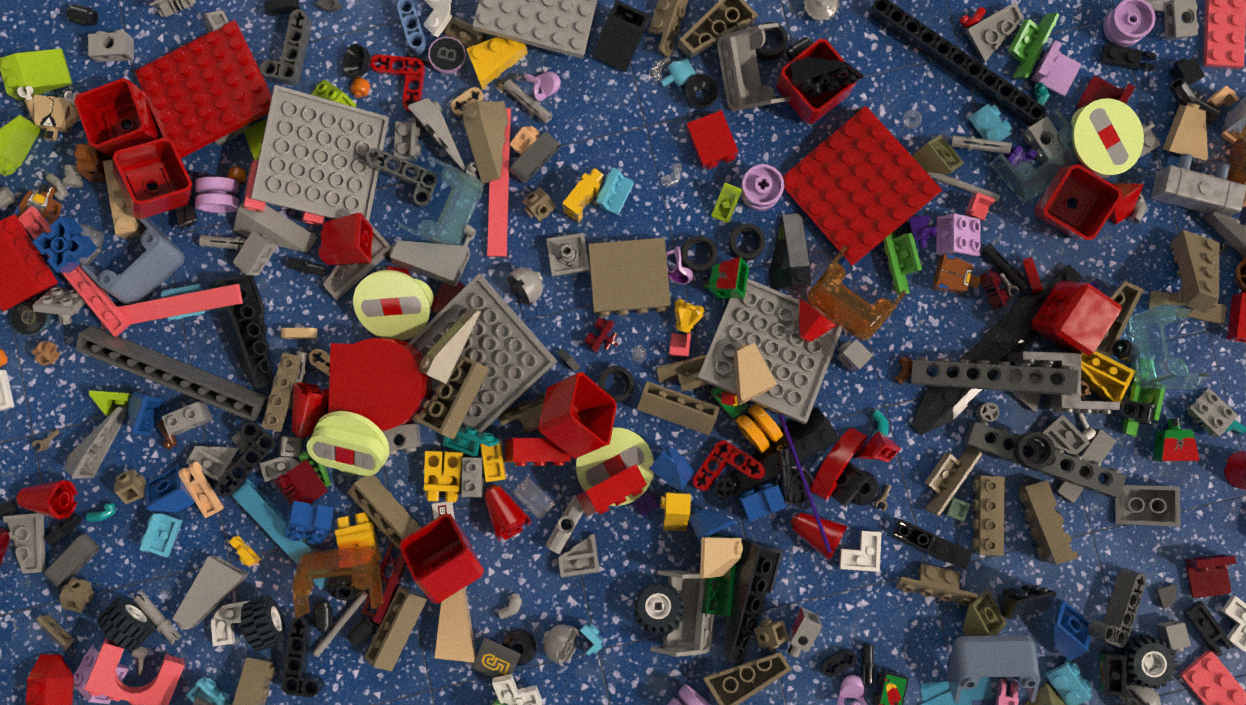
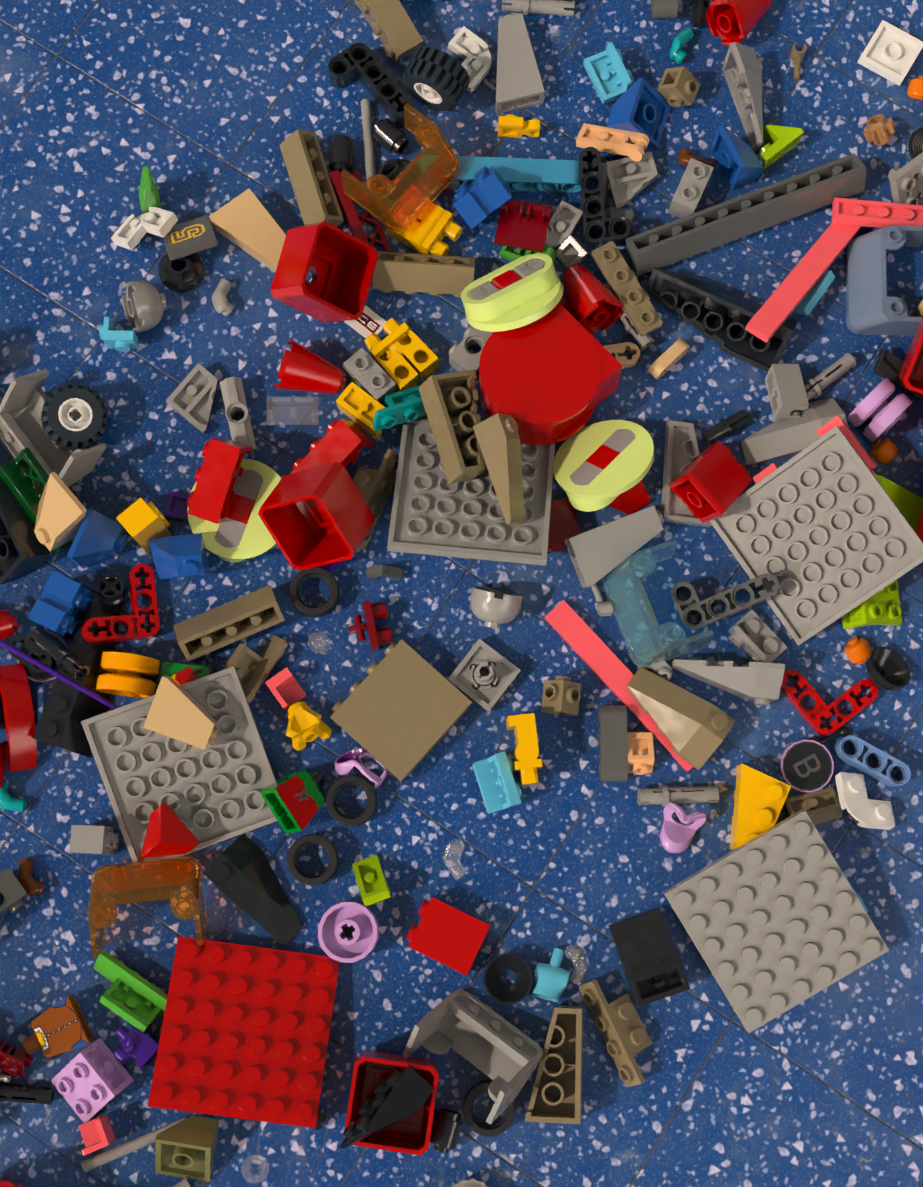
camera: 135 degrees right, 5 degrees down
(466, 98) = (744, 738): tan beam -> none

